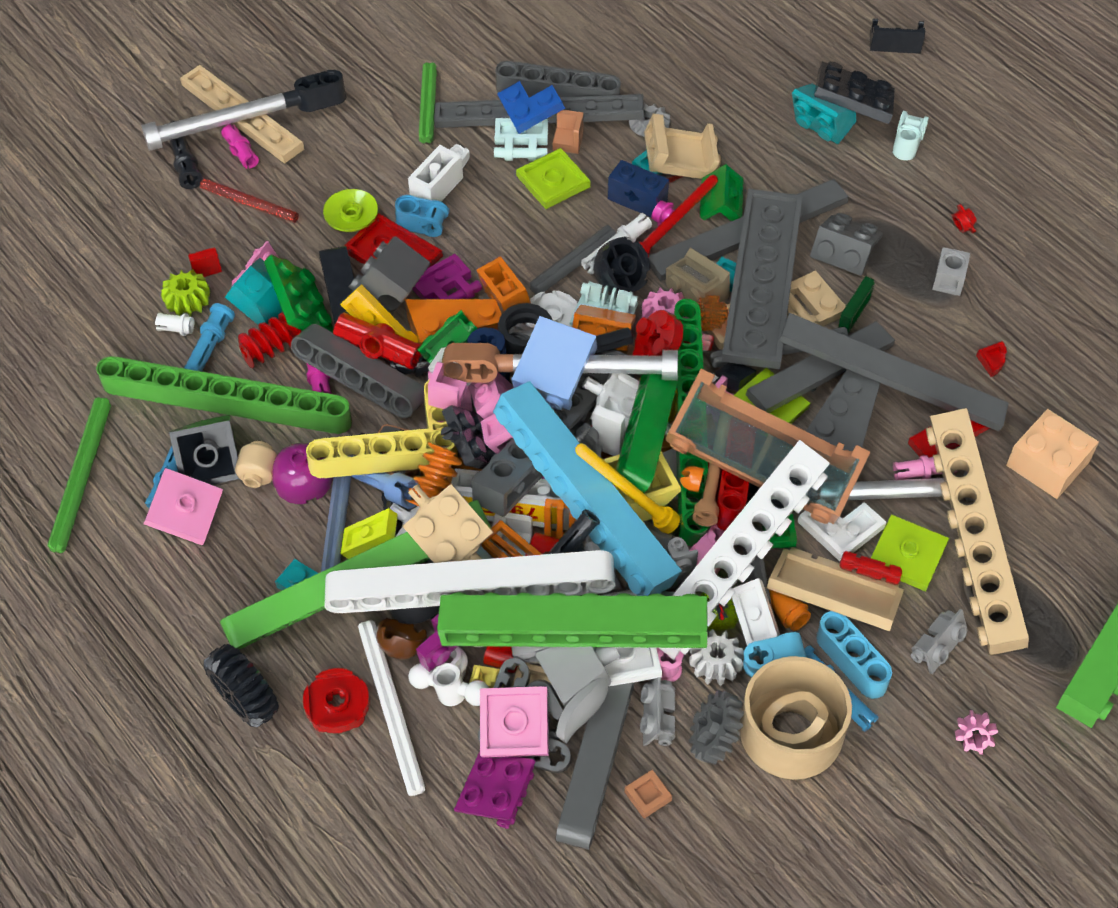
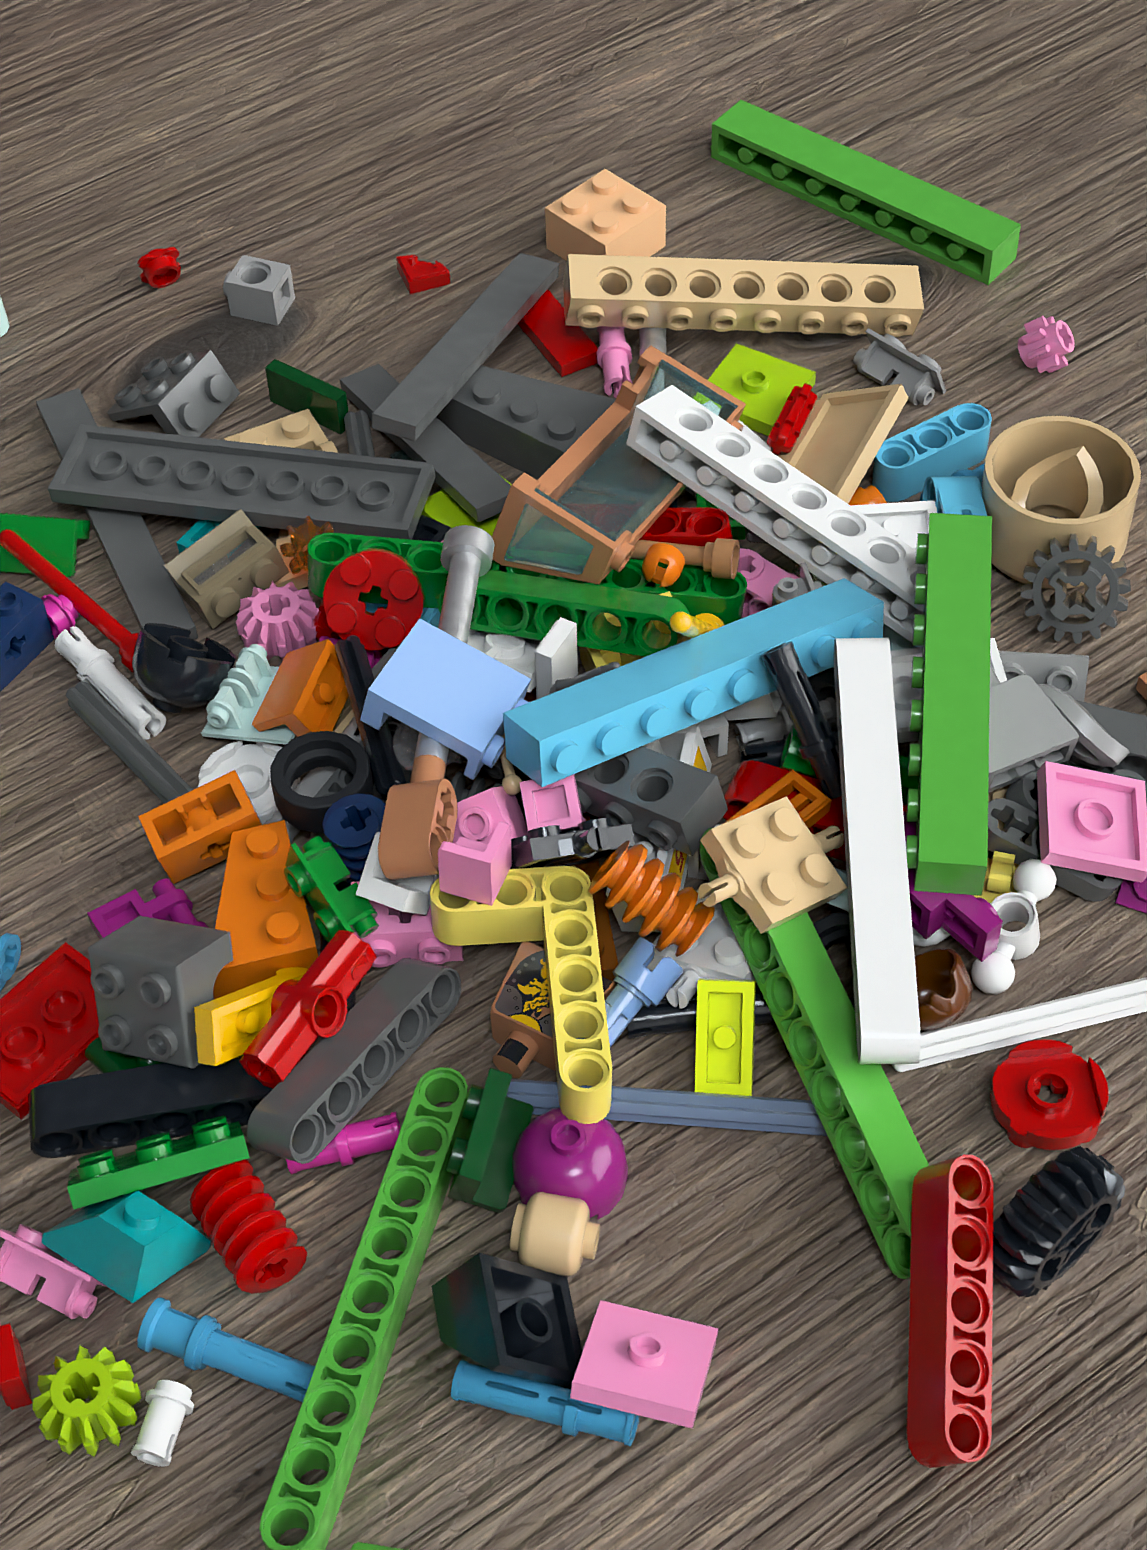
camera: 85 degrees left, 5 degrees down
(176, 631) = (951, 1313): none -> red beam
(294, 574) = (801, 1169): teal plate -> none
(305, 427) = (485, 1156): none -> dark green bracket
(549, 503) = (715, 749): orange tile -> none

